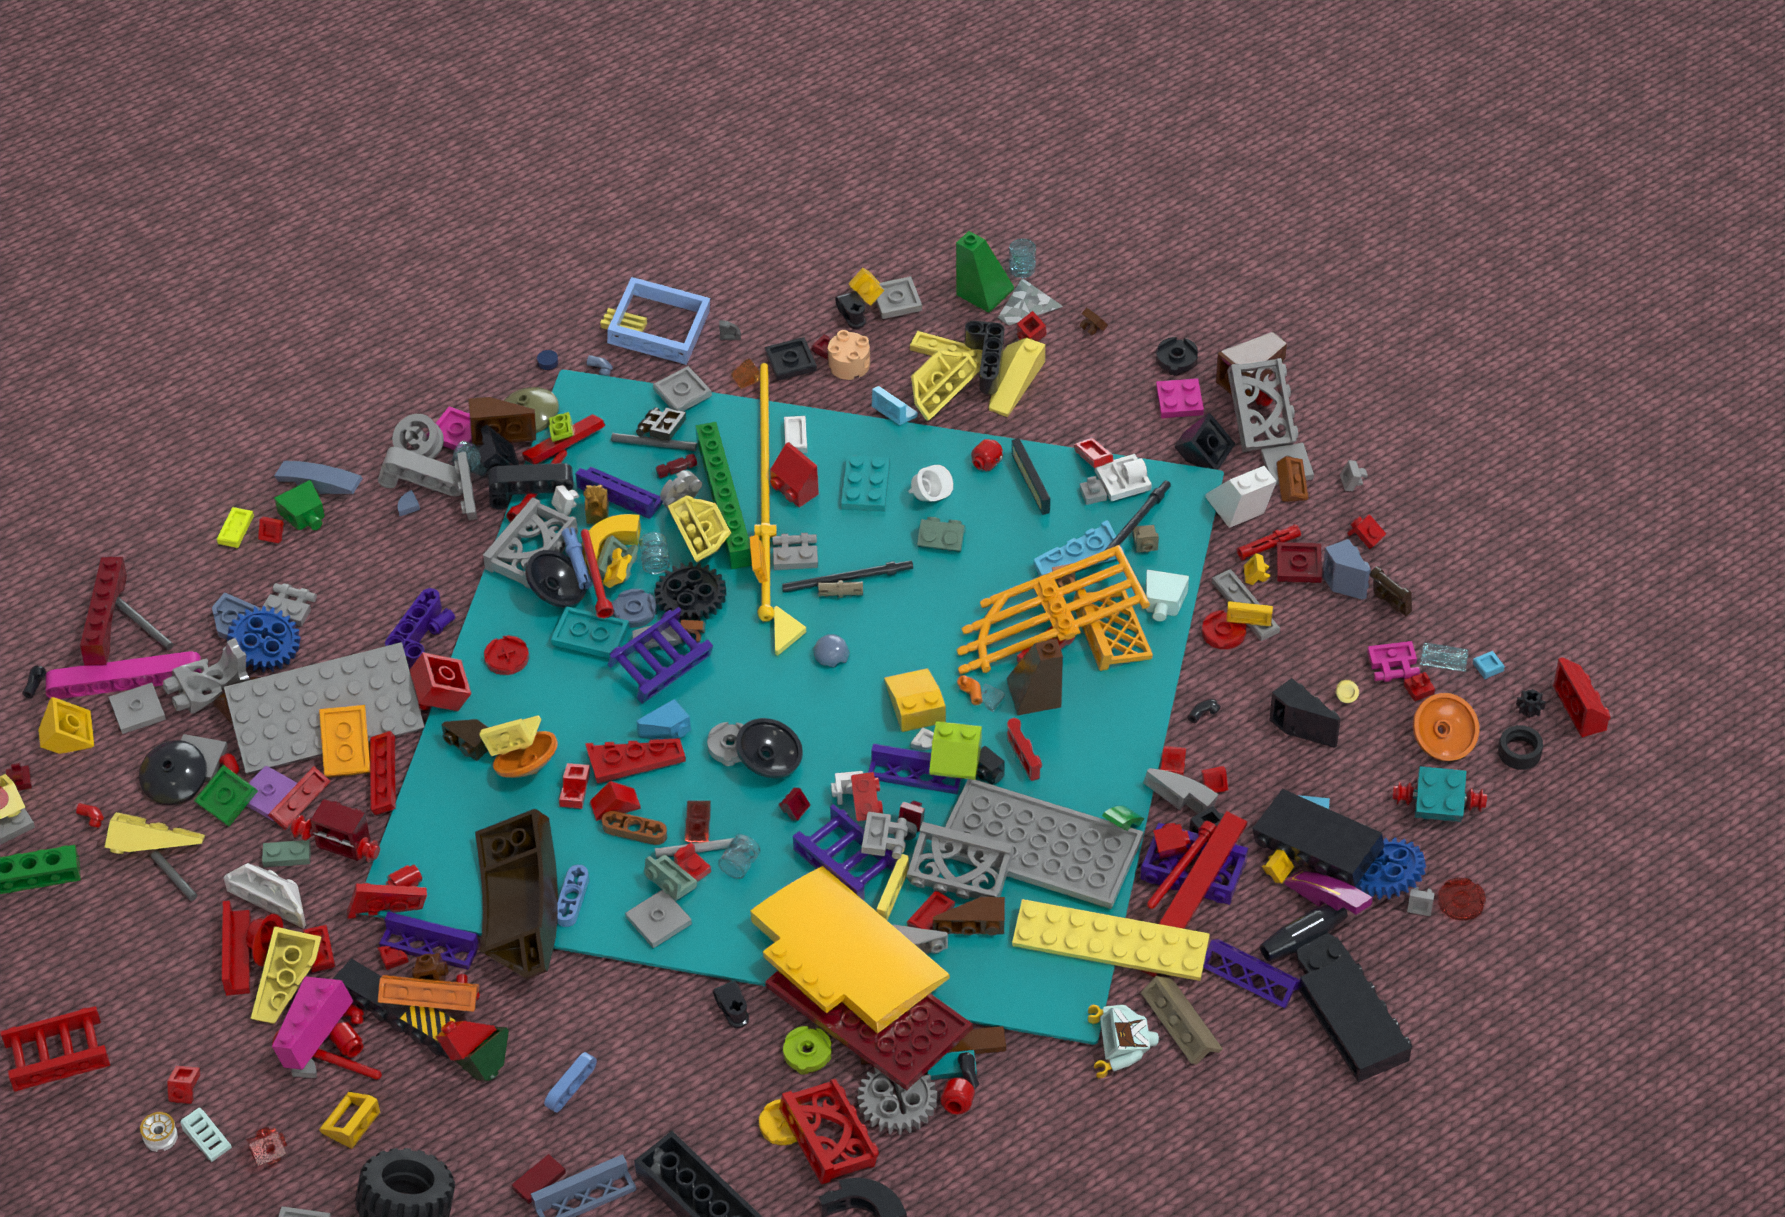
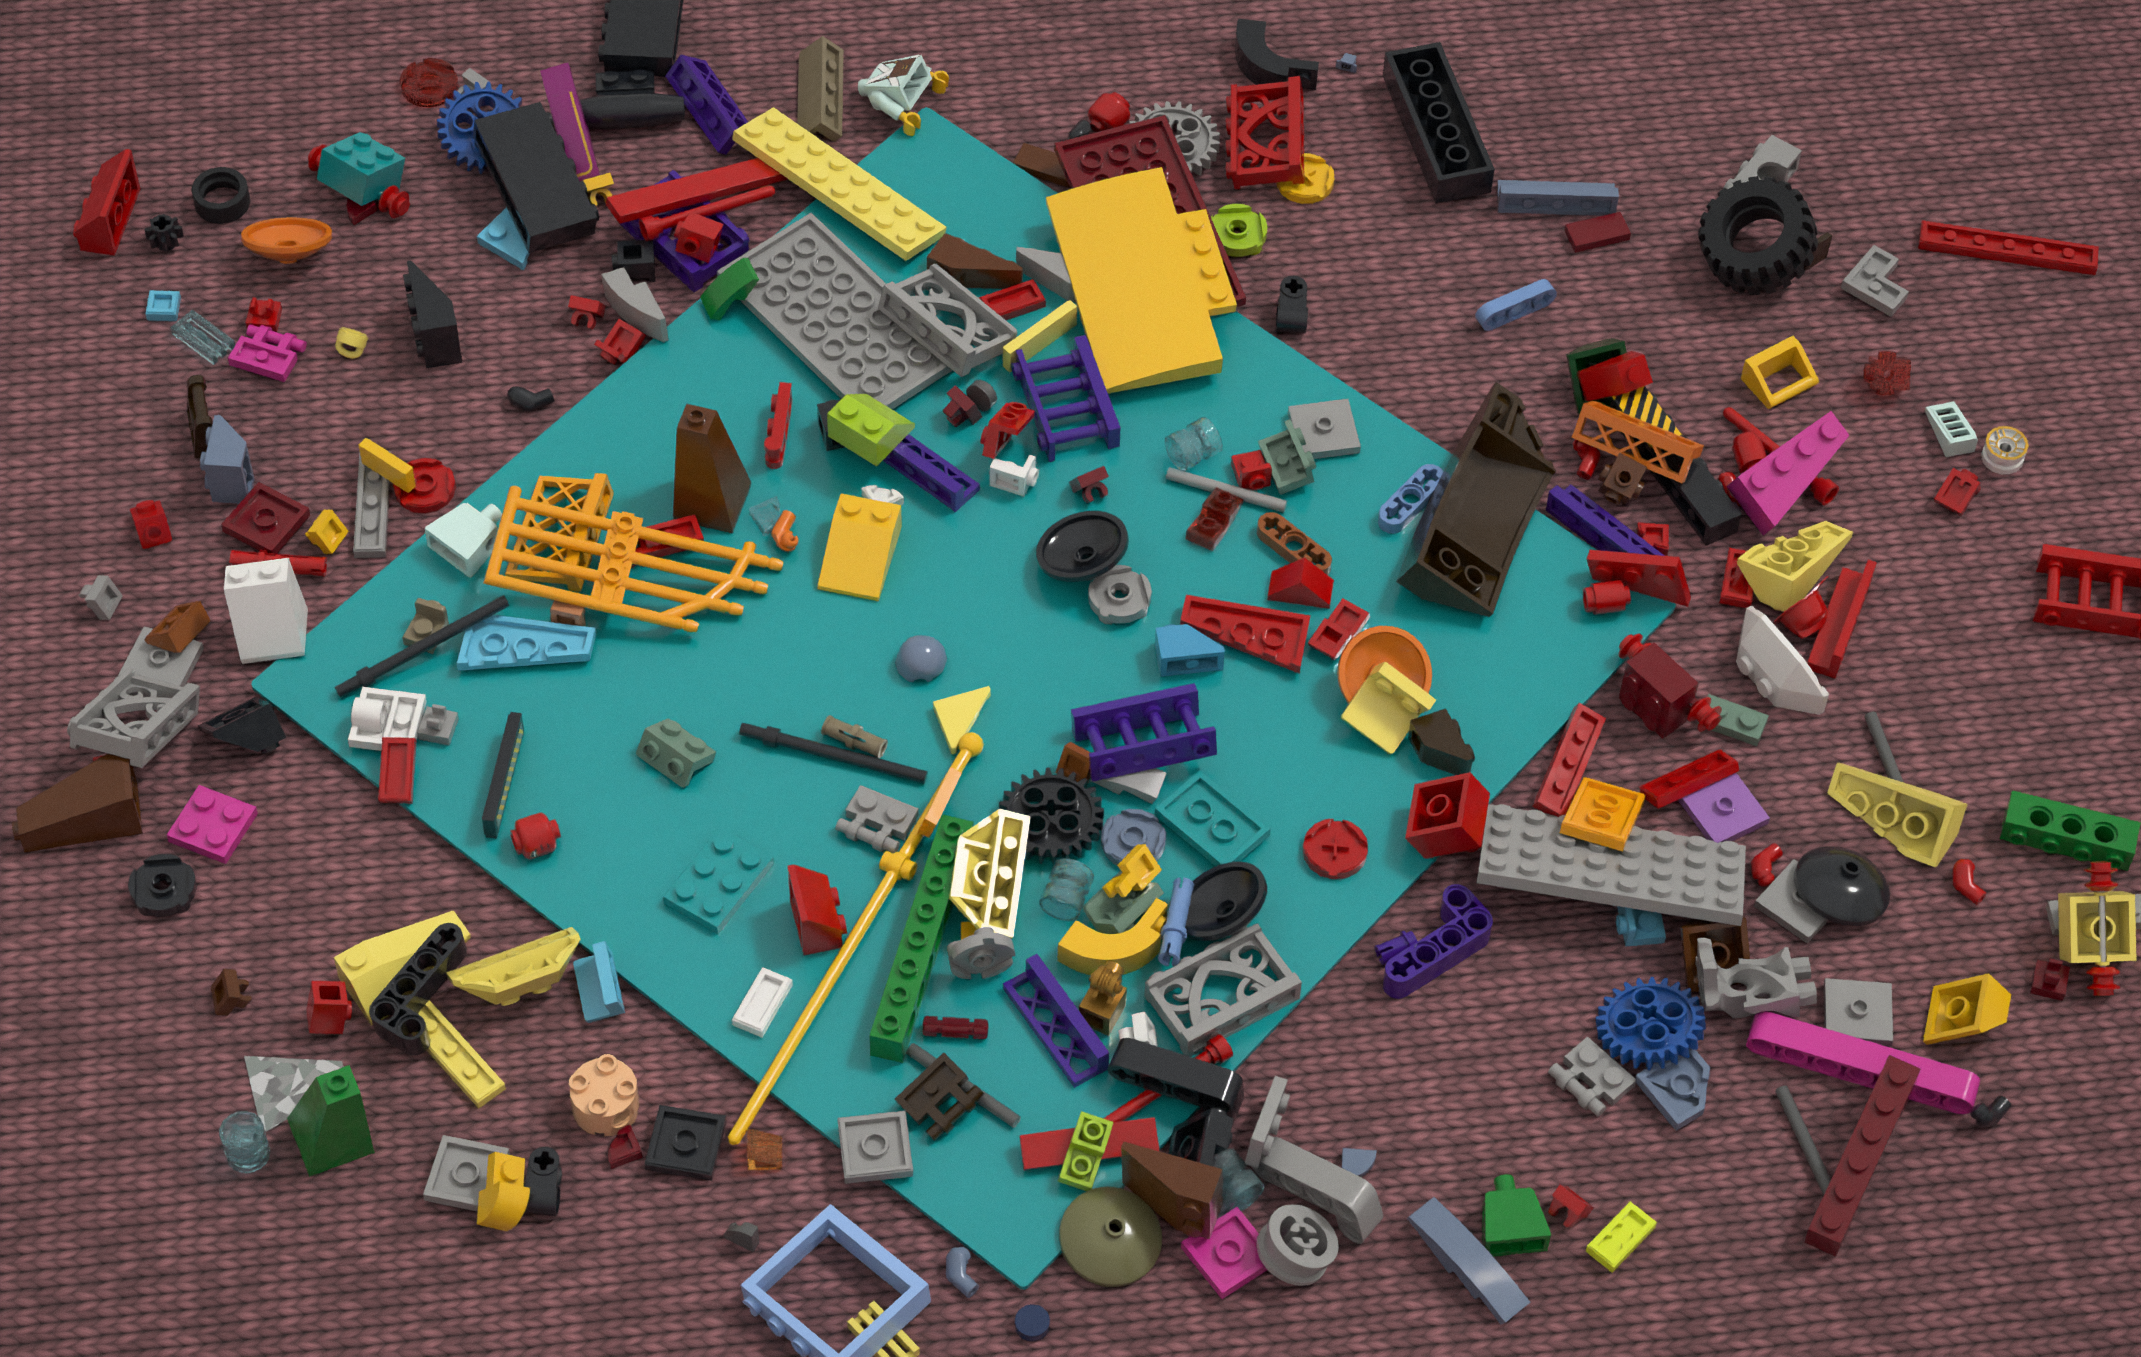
camera: 155 degrees left, 5 degrees up
(226, 795) = (1783, 821): green tile -> none
(603, 606) = (1181, 826): red piece -> none
(876, 835) = (1024, 375): light grey plate -> none
(932, 483) = (646, 823): white piece -> none

